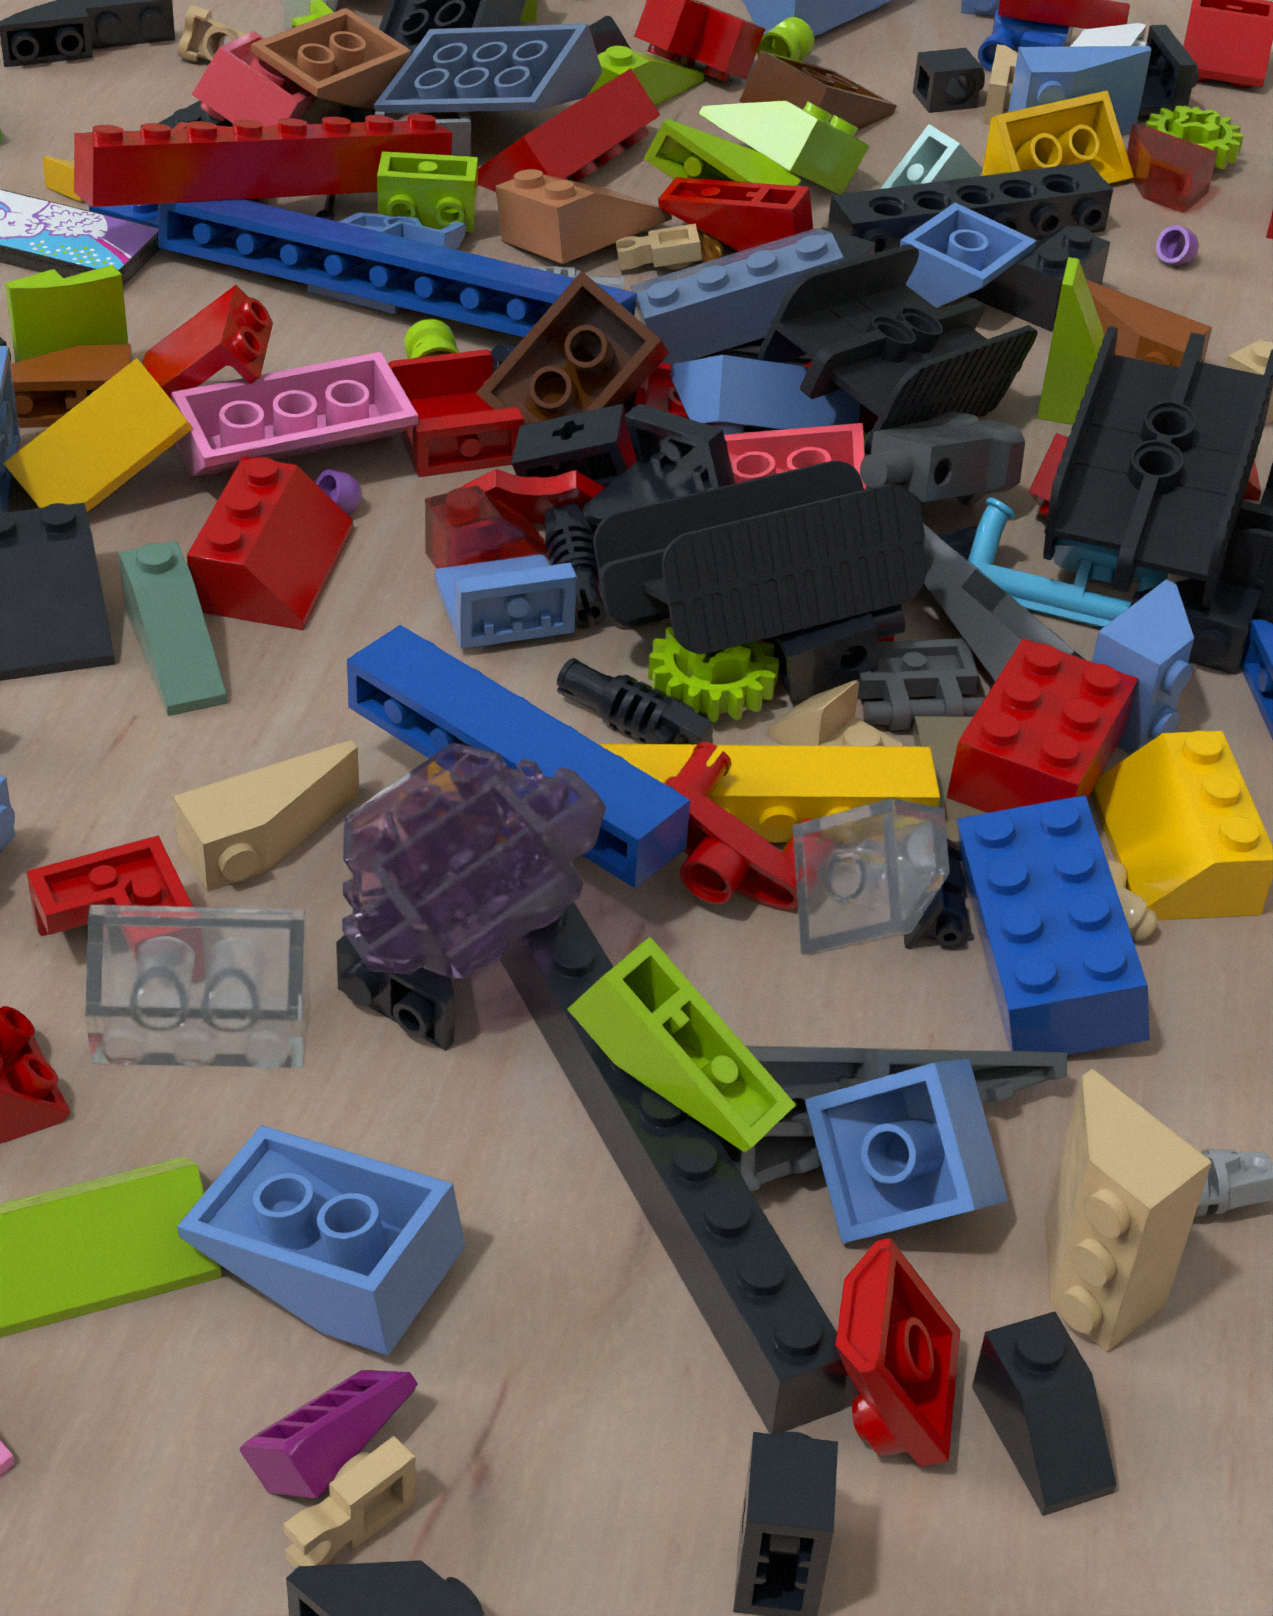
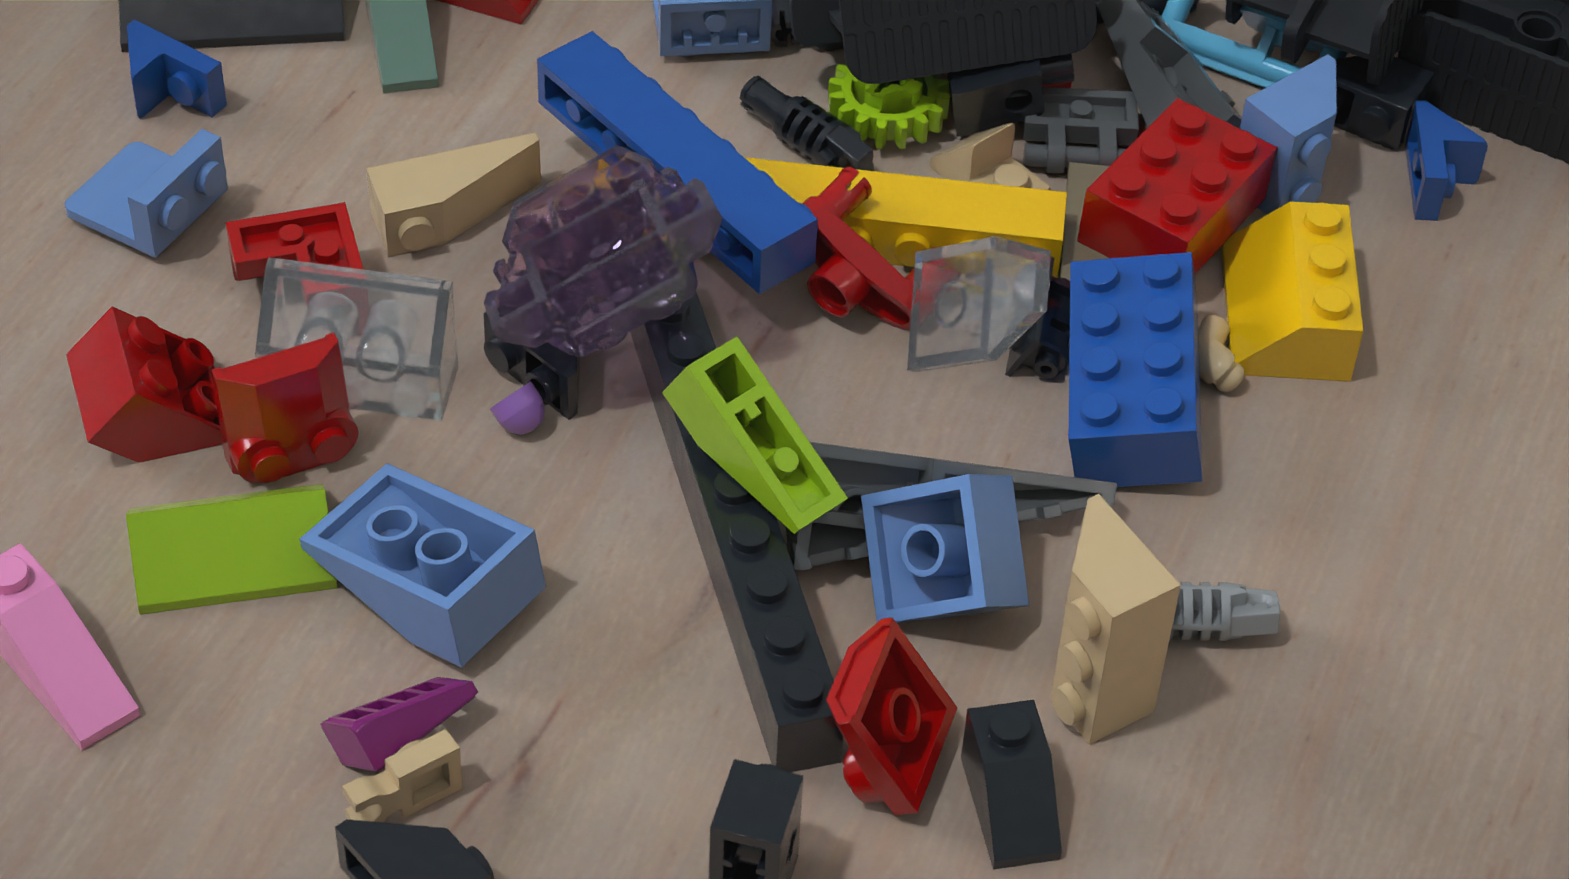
camera: 10 degrees right, 5 degrees up
(131, 1079) = (285, 411): none -> red slope
(393, 1046) = (521, 410): none -> medium lavender hinge

